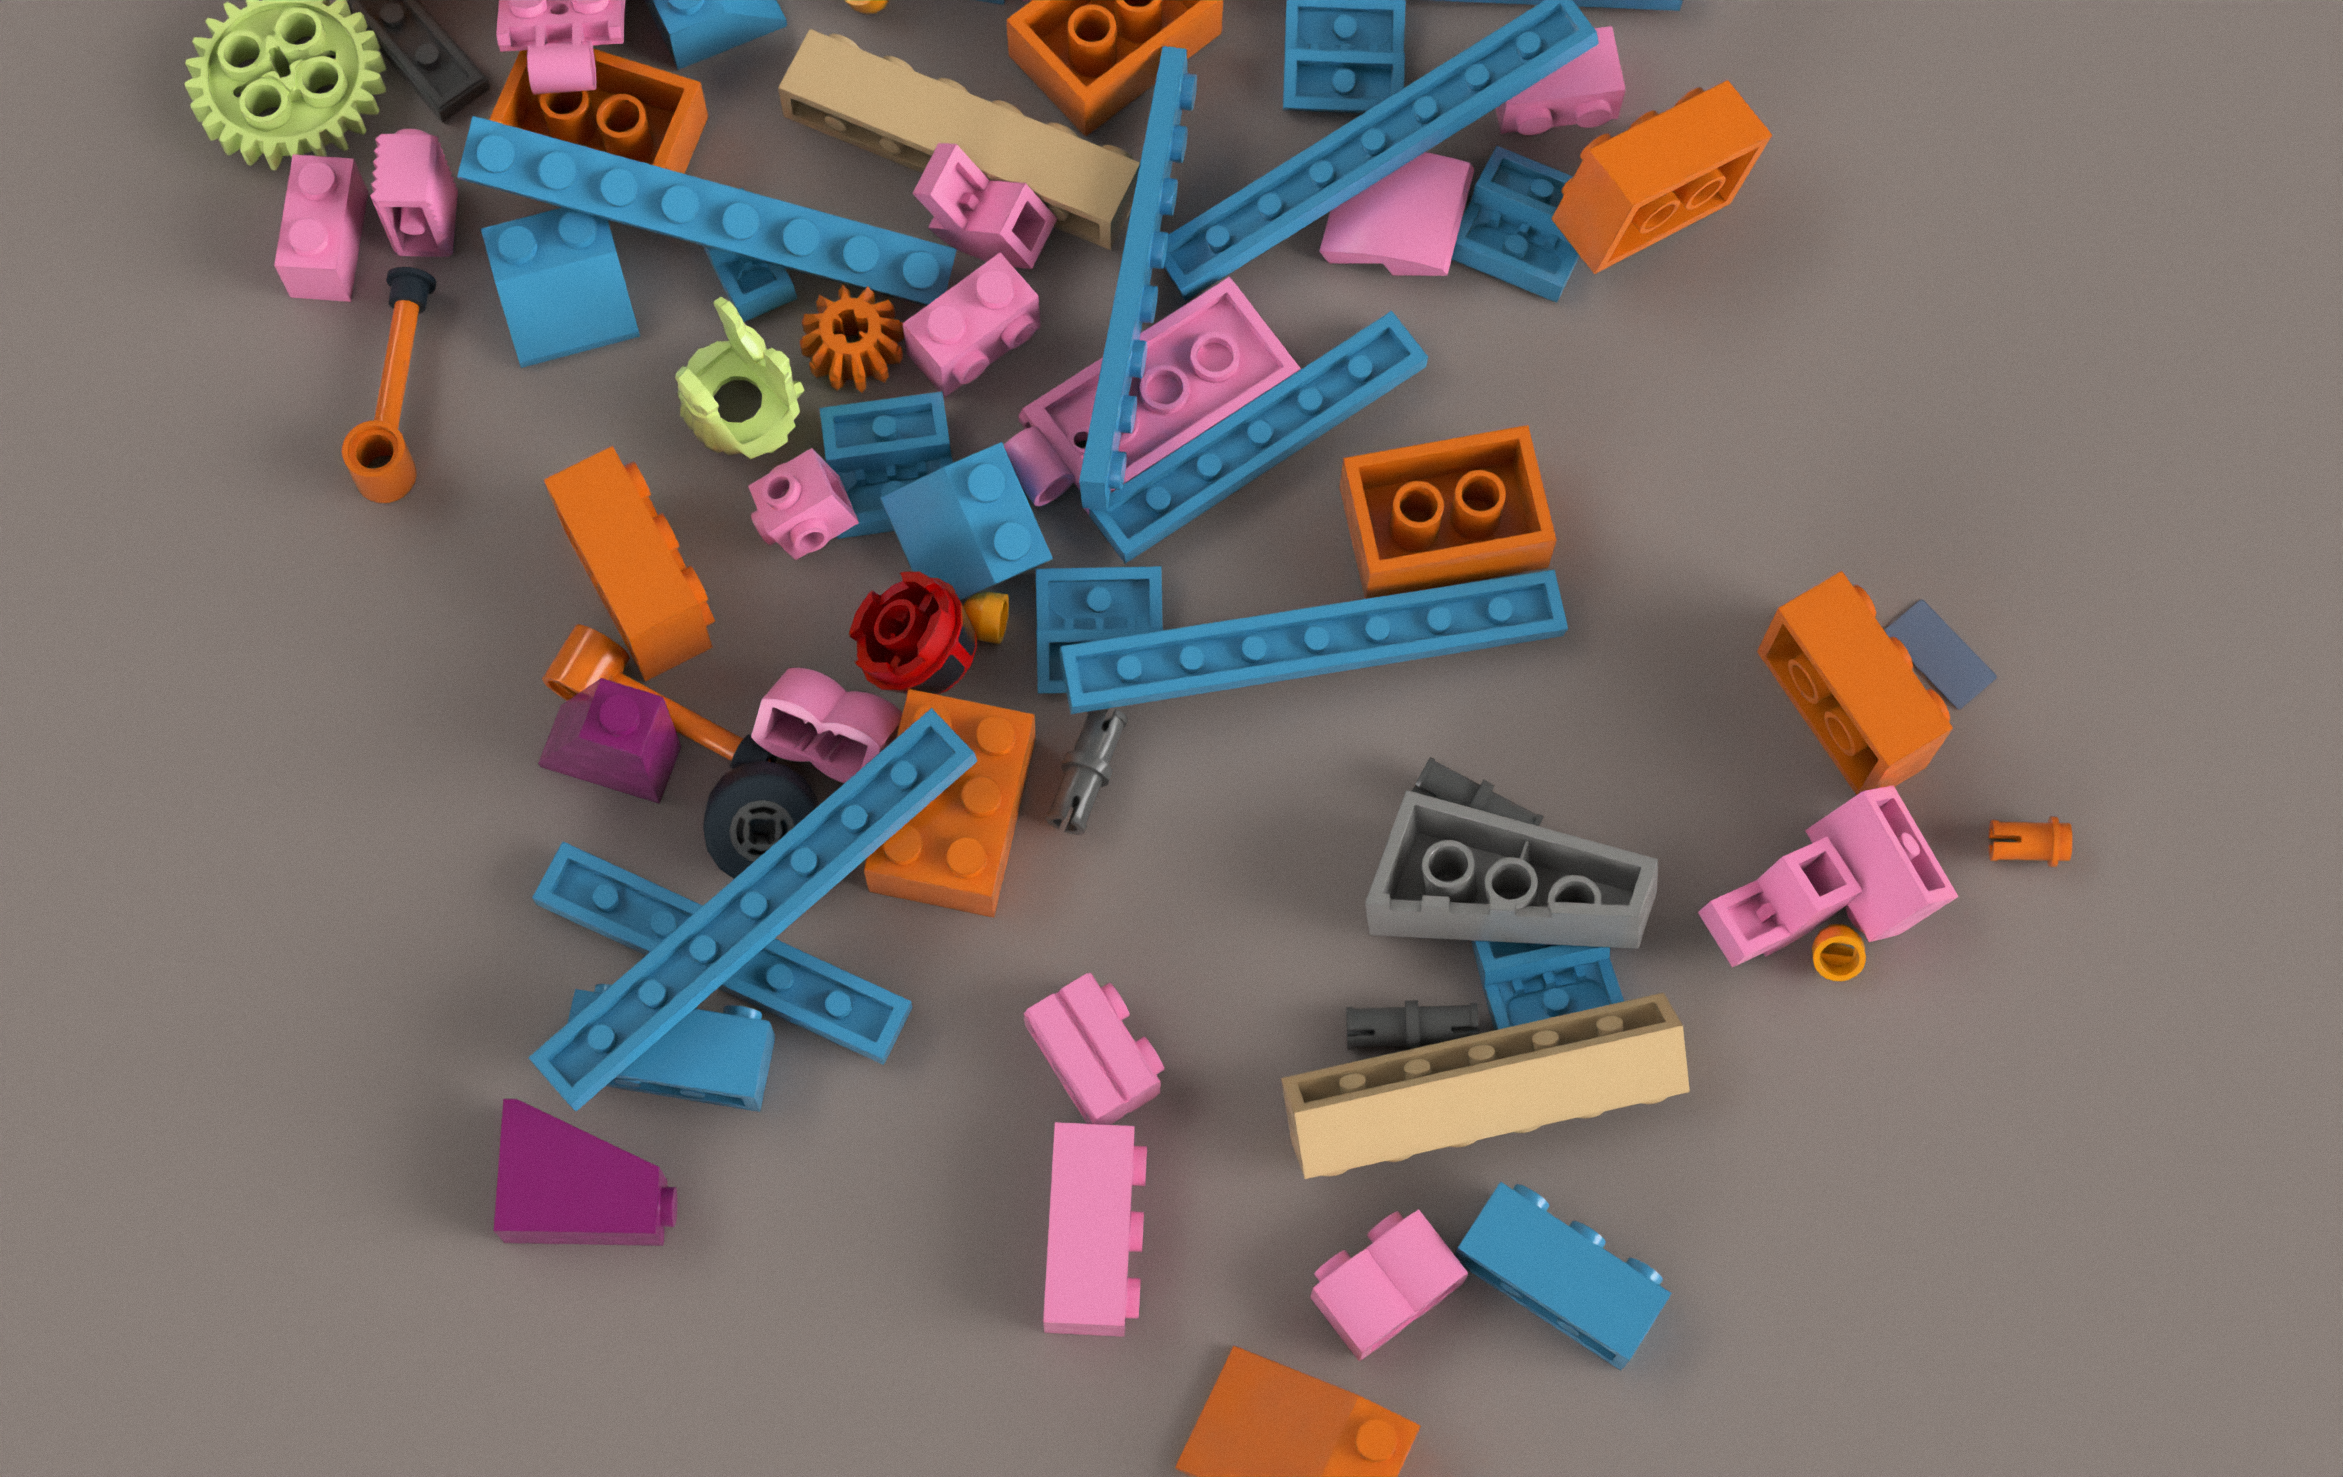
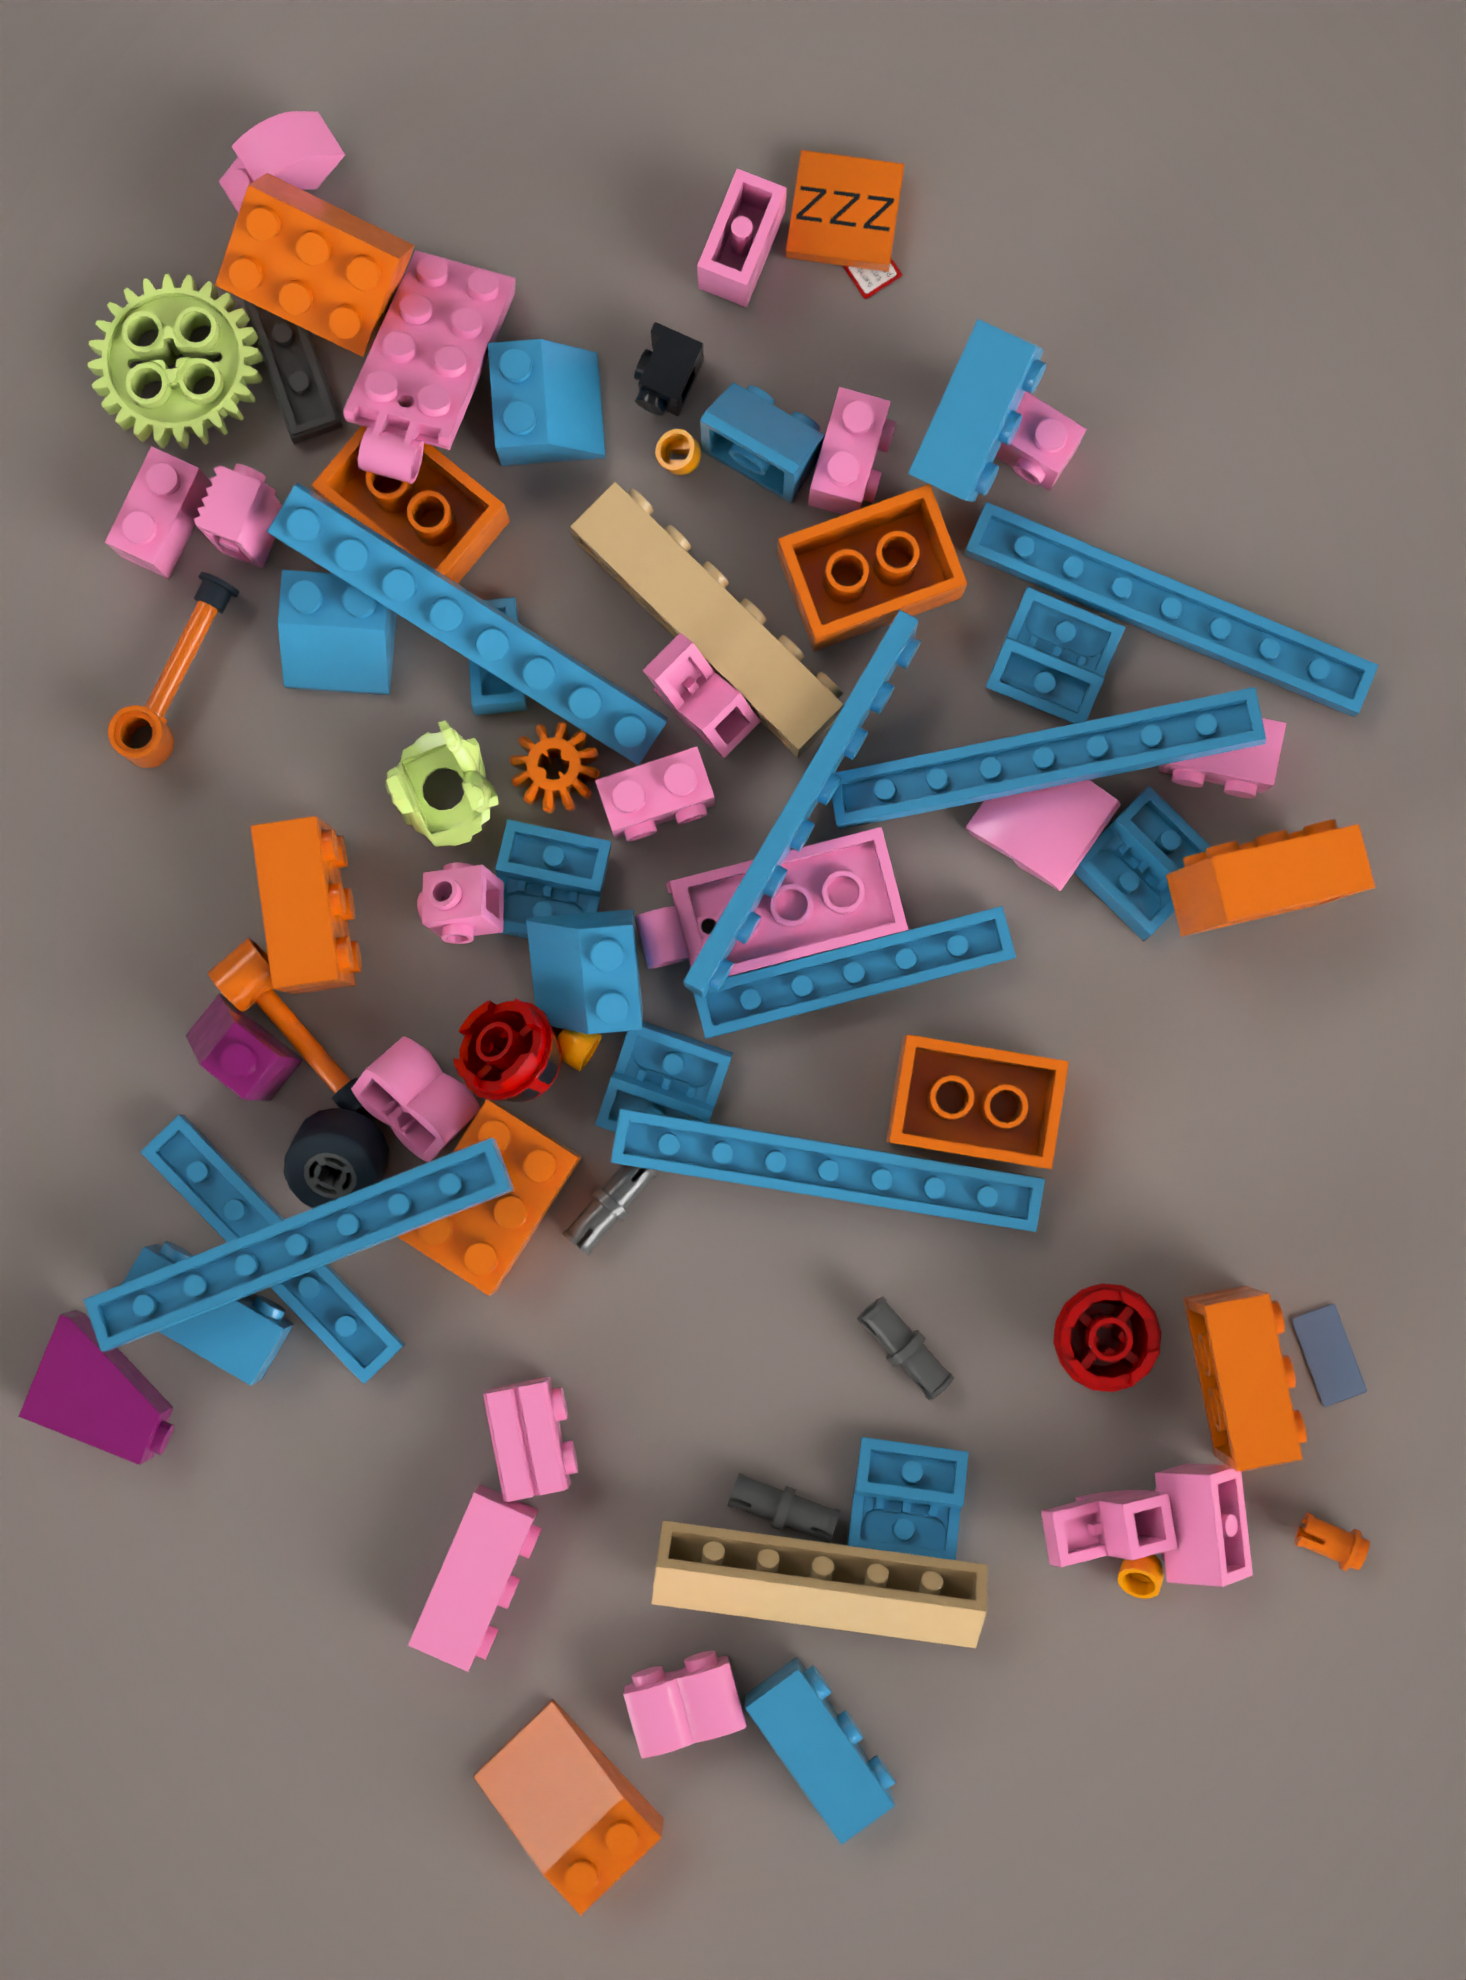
camera: 25 degrees right, 15 degrees up
(1505, 881) = (888, 1425): light grey wedge -> none
(1691, 700) = (1107, 1337): none -> red cone

